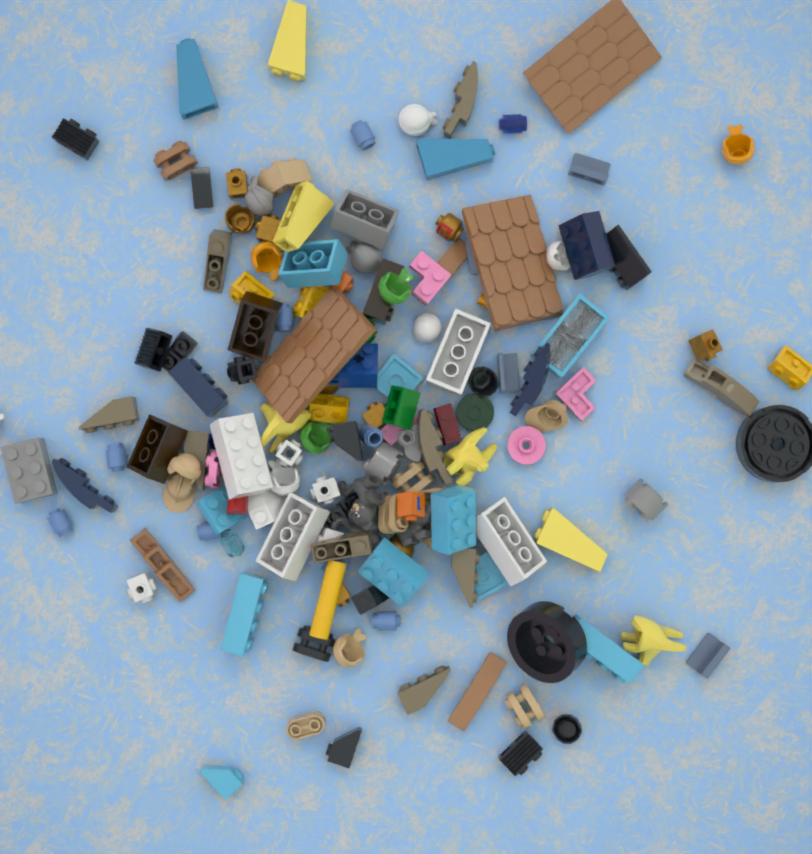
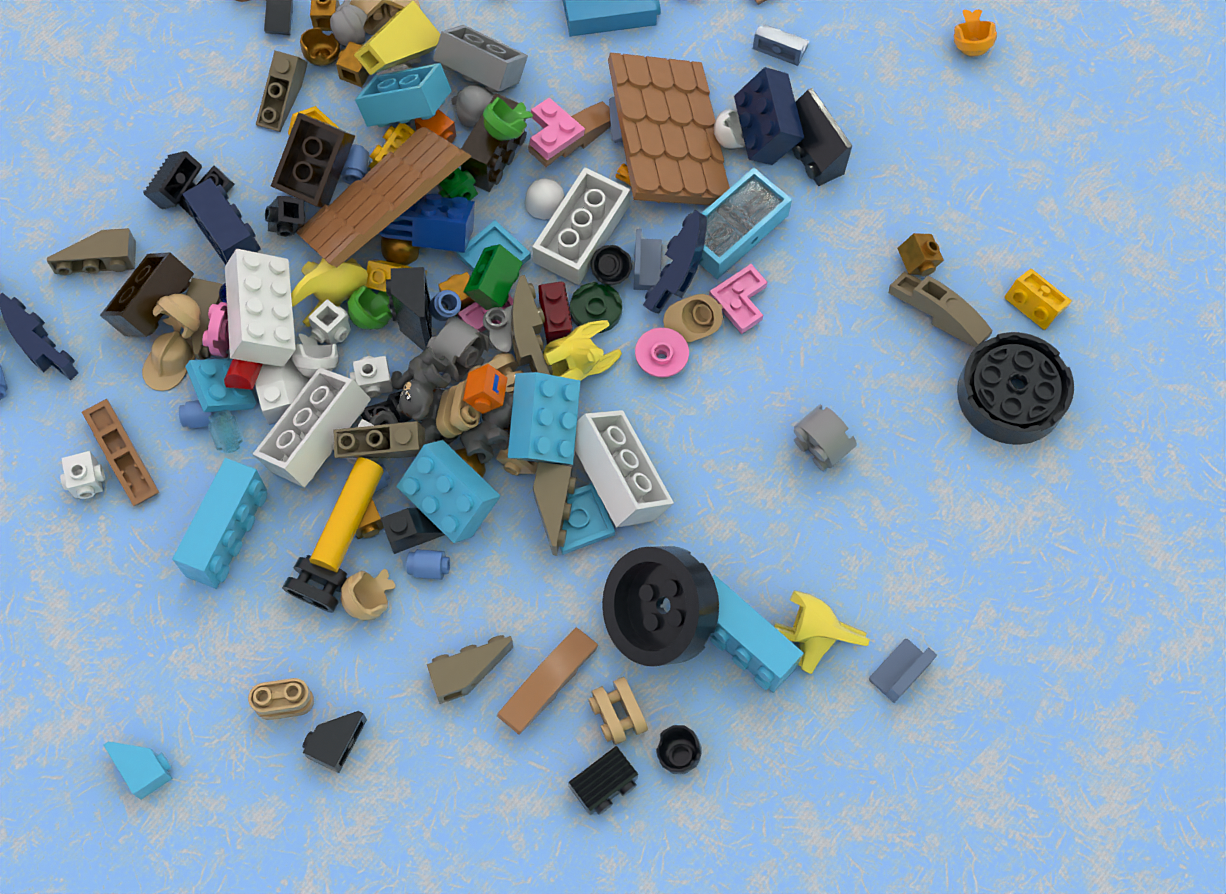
camera: 10 degrees right, 20 degrees down
(116, 457) = (90, 305): medium blue brick -> none
(267, 259) = (341, 91): light orange hat -> none
(449, 227) = (591, 84): pearl gold head -> none
(566, 539) = (709, 484): light yellow slope -> none

